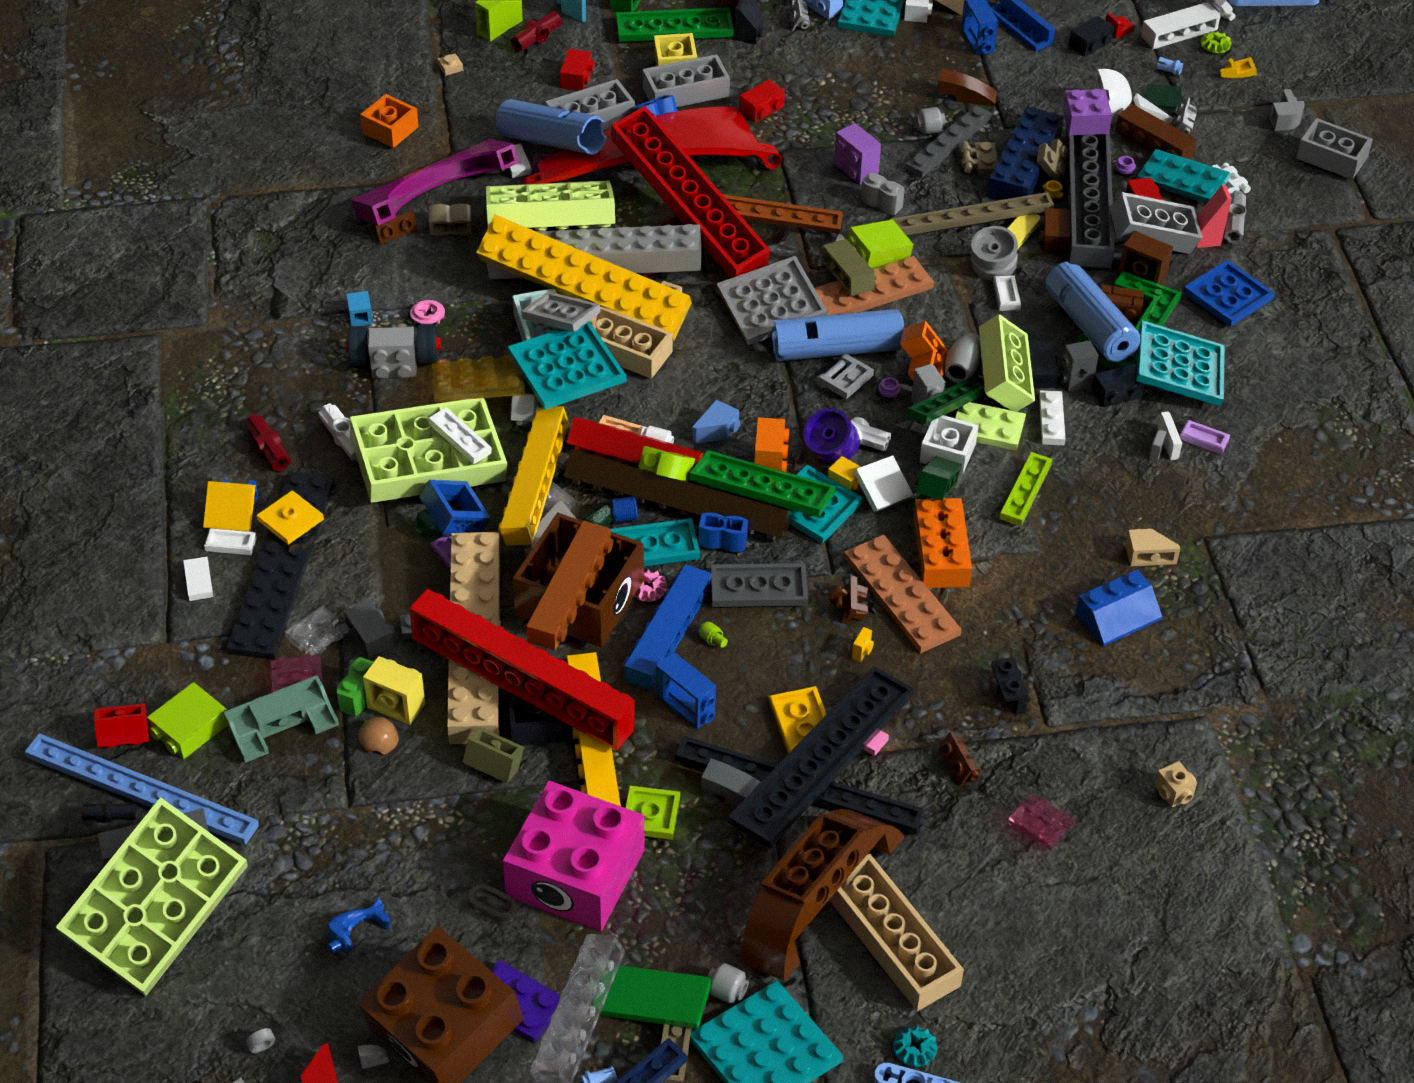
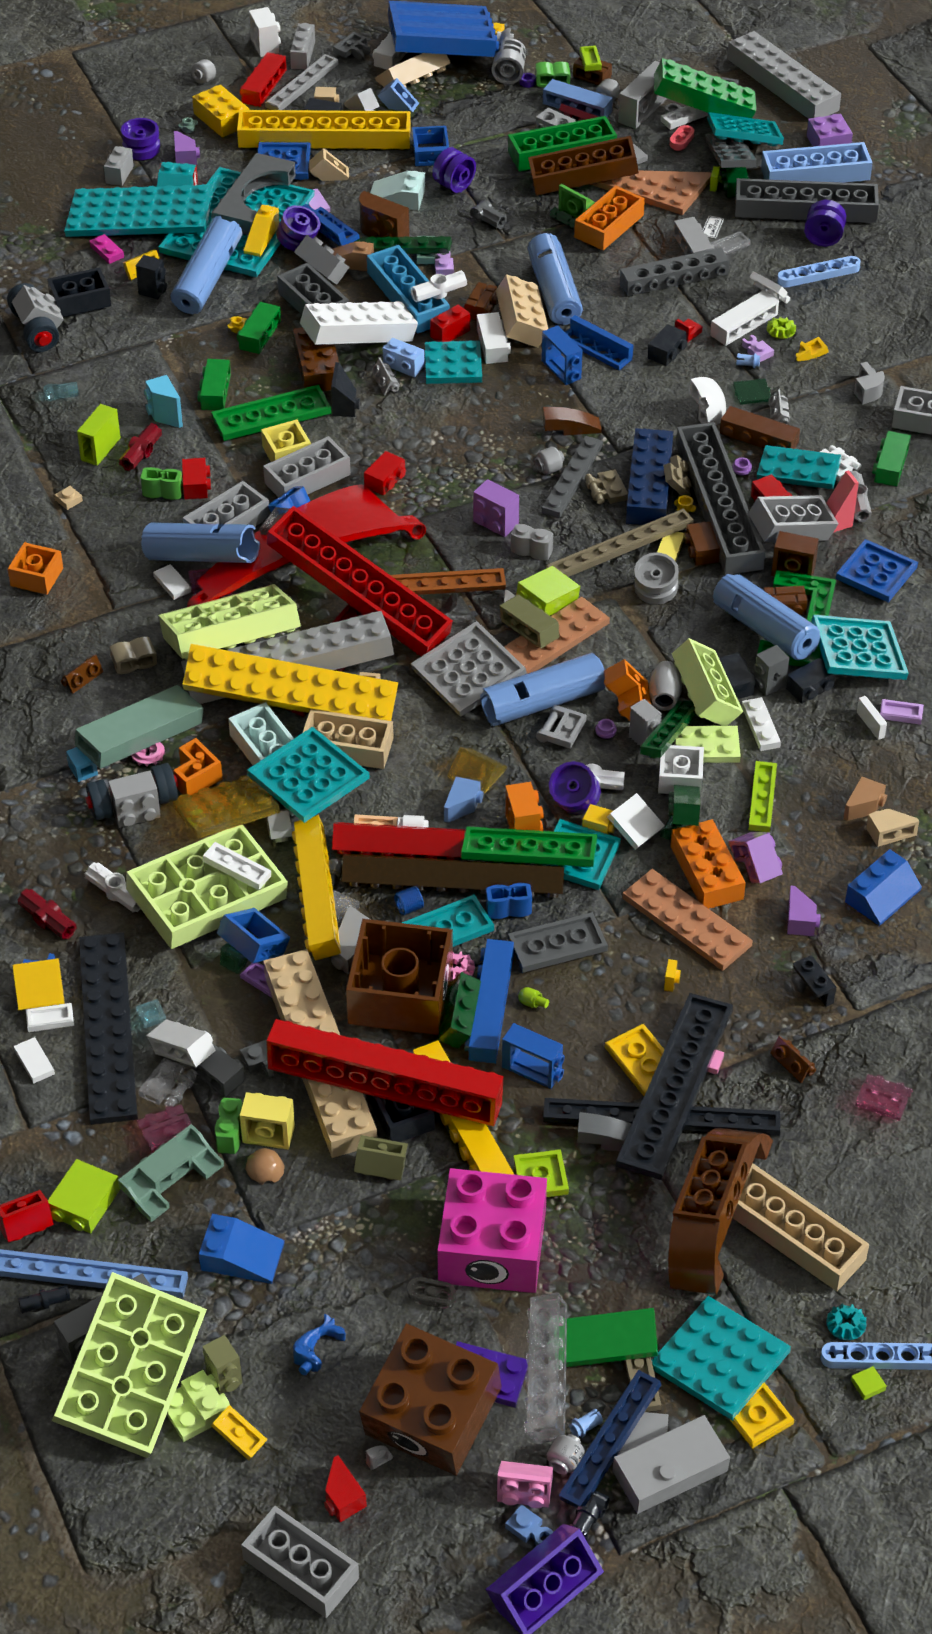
camera: 15 degrees left, 0 degrees up
(213, 956) = (196, 1405): none -> yellowish green plate
(241, 994) = (239, 1432): none -> yellow hinge
(250, 921) = (223, 1364): none -> olive brick
(260, 1040) = (272, 1469): light grey tile -> none
(290, 517) = (101, 981): yellow plate -> none
(318, 811) = (239, 1250): none -> blue slope
(327, 560) = (151, 1013): none -> clear light blue plate
(341, 594) = (181, 1043): none -> white brick
(384, 202) = (63, 652): magenta arch -> none
(425, 285) = (138, 726): none -> sand green brick
(466, 339) = (197, 769): none -> orange brick
(541, 67) = (162, 483): none -> bright green brick
(560, 311) = (284, 724): light grey plate -> none
(569, 585) = (403, 985): dark orange brick -> none
(600, 516) = (388, 912): clear green brick -> none
(629, 627) = (459, 1010): none -> dark green brick
(666, 463) = (436, 848): lime brick -> none
(728, 983) = (668, 1309): light grey head -> none
(744, 396) = (477, 767): none -> clear yellow slope
(847, 599) = (643, 935): reddish brown hips -> none
(996, 546) = (758, 854): none -> medium lavender brick
(1006, 293) = (678, 614): white tile -> none
(1022, 615) = (801, 914): none -> medium lavender slope
(1087, 112) = (696, 424): medium lavender brick -> none
(1132, 514) = (865, 799): none -> medium nougat slope
(1144, 104) = (746, 406): white tile -> none
(1157, 445) = (864, 729): light grey tile -> none
(1188, 58) = (760, 348): none -> lavender plate
(1284, 187) = (891, 458): none -> green brick

